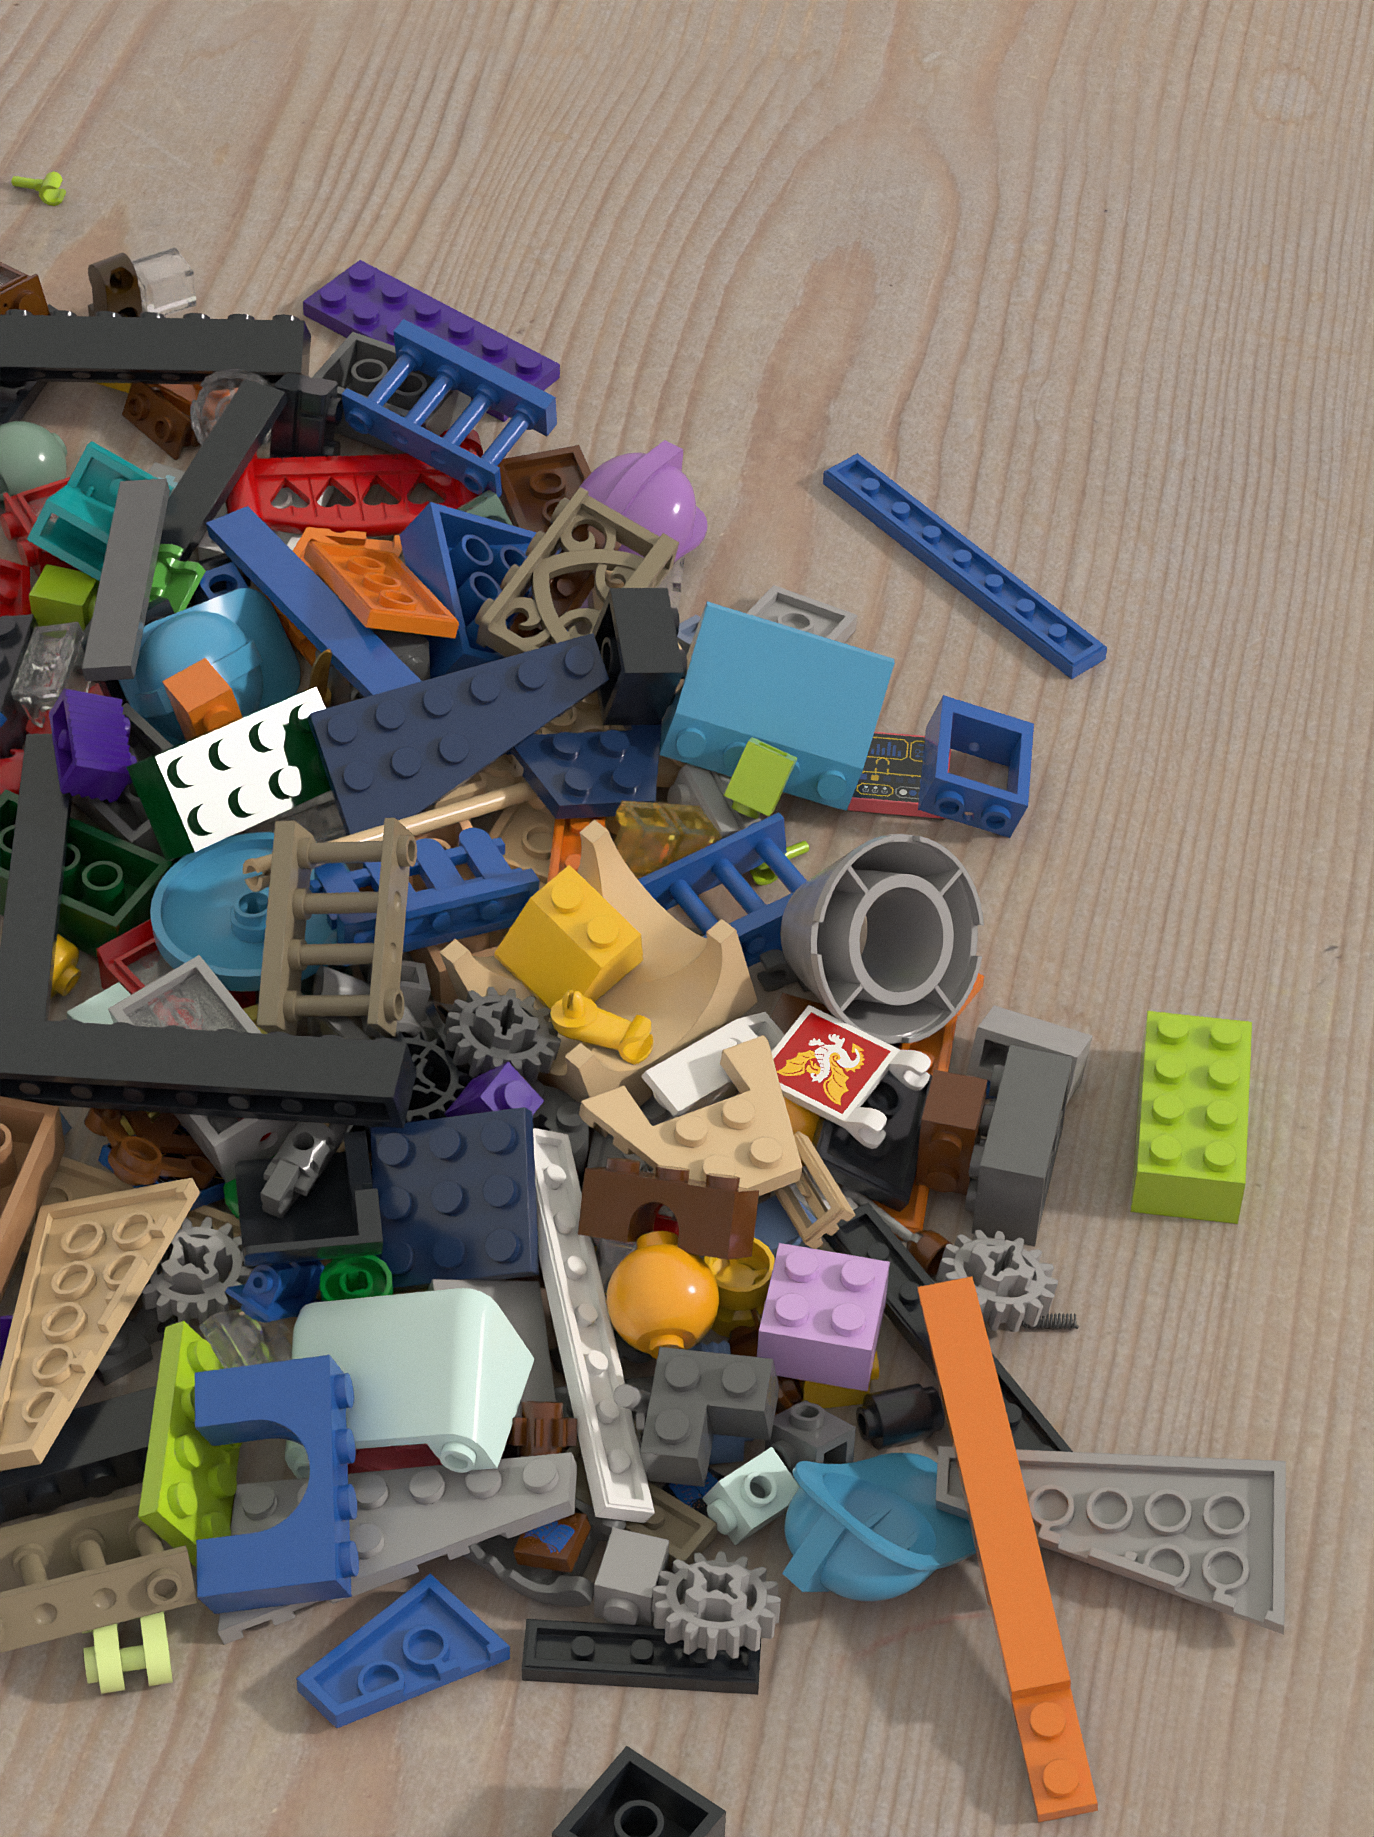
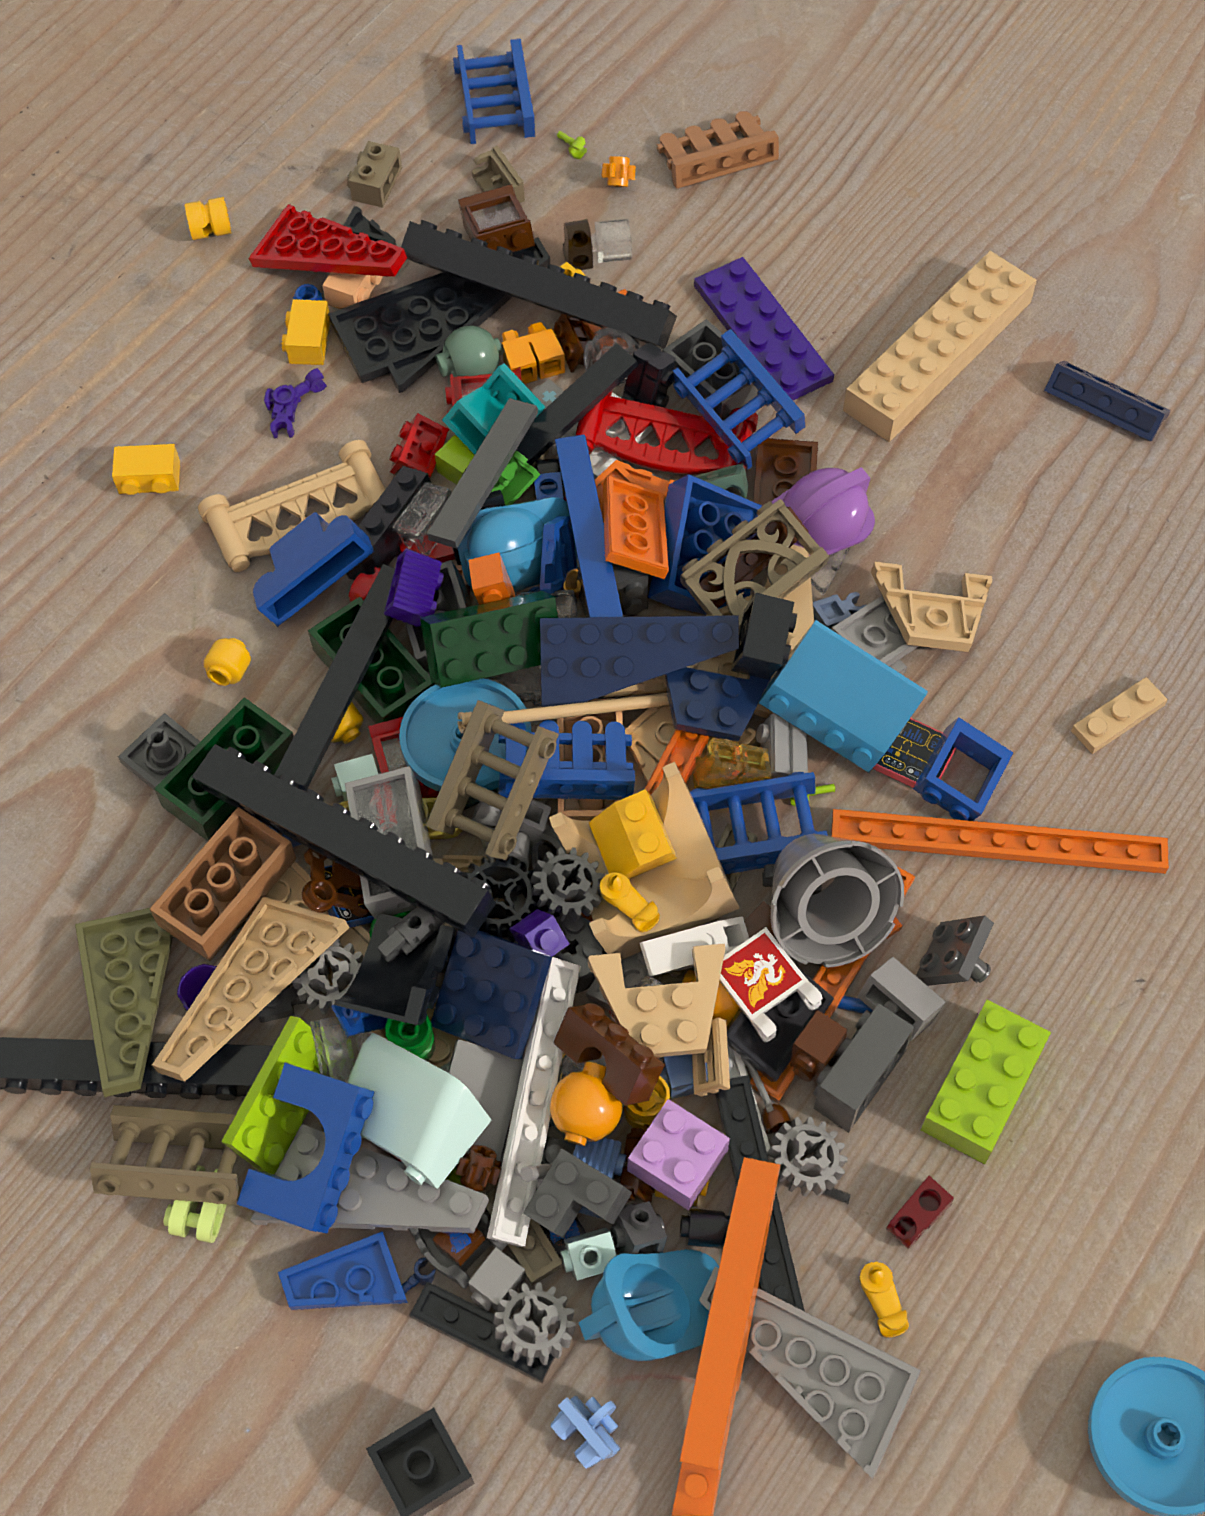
camera: 25 degrees right, 15 degrees up
(120, 430) = (534, 352): none -> light orange hips
(129, 199) = (618, 171): none -> light orange gear
(271, 153) = (727, 157): none -> medium nougat fence
(277, 654) = (557, 554): none -> blue wing
(512, 1619) = (418, 1278): none -> dark blue hand
(689, 296) = (939, 346): none -> tan brick
(759, 779) = (811, 744): lime brick -> none
(838, 602) = (933, 618): none -> tan wing
(879, 1726) = (576, 1416): none -> light blue hips
(945, 303) = (1106, 400): none -> dark blue fence
(965, 566) = (1029, 609): blue tile -> none
(1078, 971) = (956, 952): none -> dark grey plate
(1124, 825) = (1003, 841): none -> orange plate
(1147, 654) = (1119, 715): none -> tan plate
(1173, 1411) = (880, 1290): none -> yellow piece
(1183, 1296) = (920, 1212): none -> dark red leg

